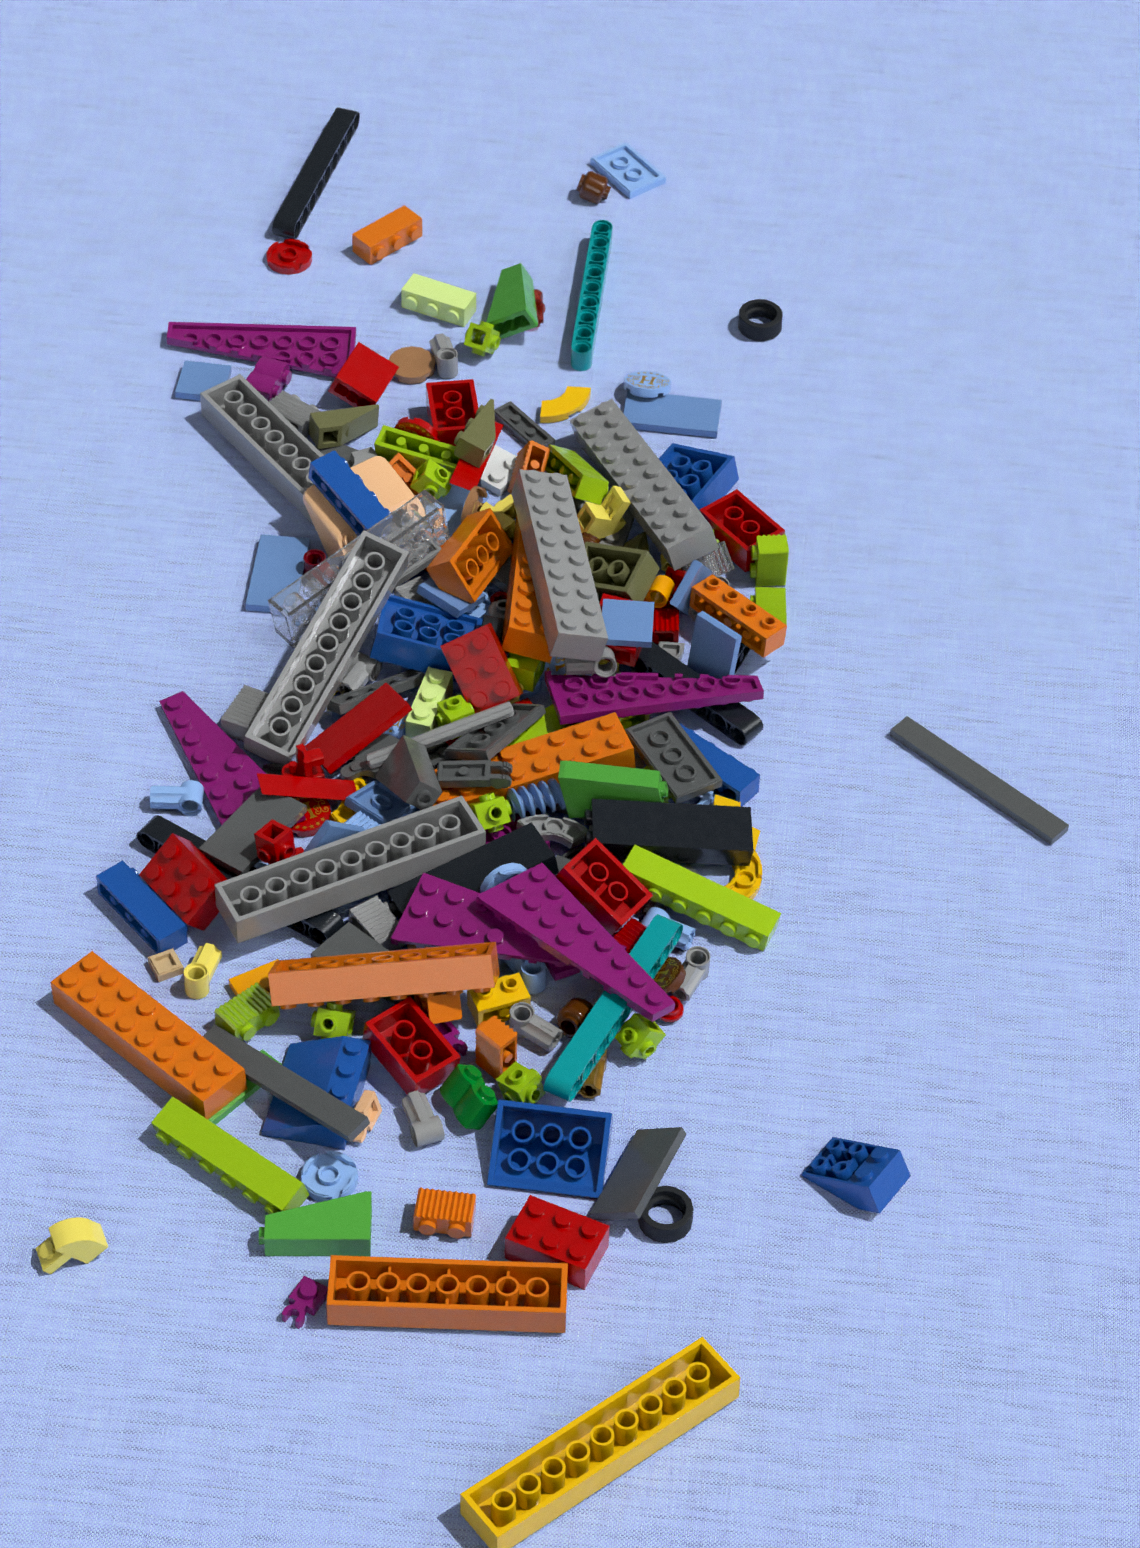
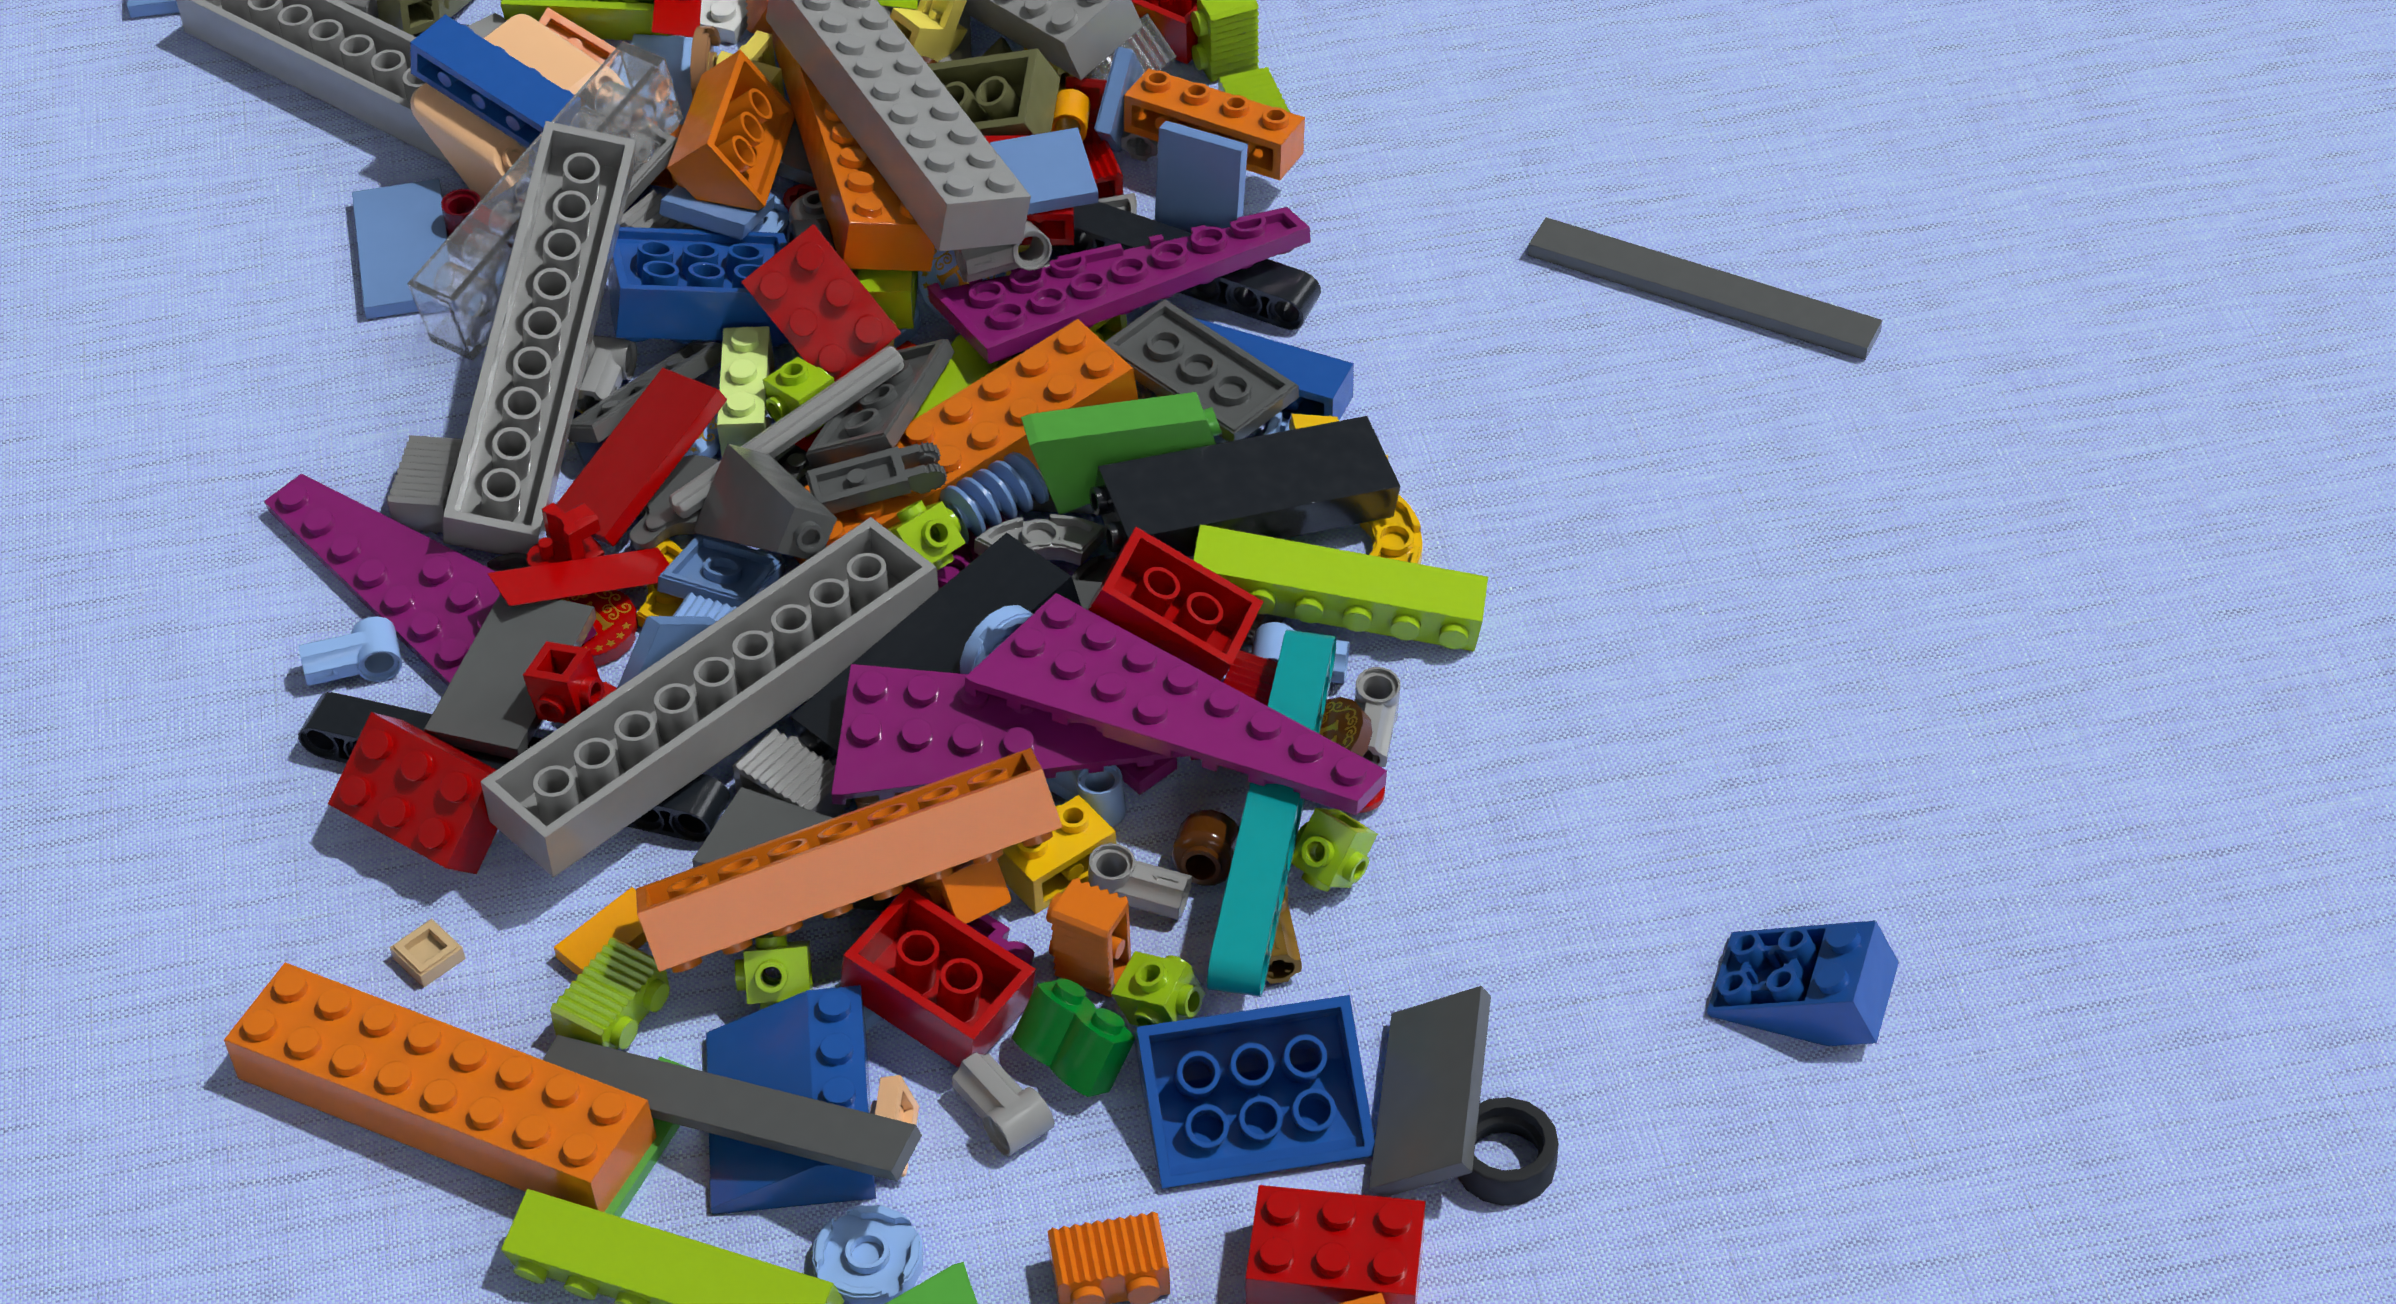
camera: 15 degrees left, 0 degrees up
(141, 908) = (350, 863): blue brick -> none
(201, 970) = (498, 946): light yellow piece -> none
(432, 478) = (611, 27): lime brick -> none

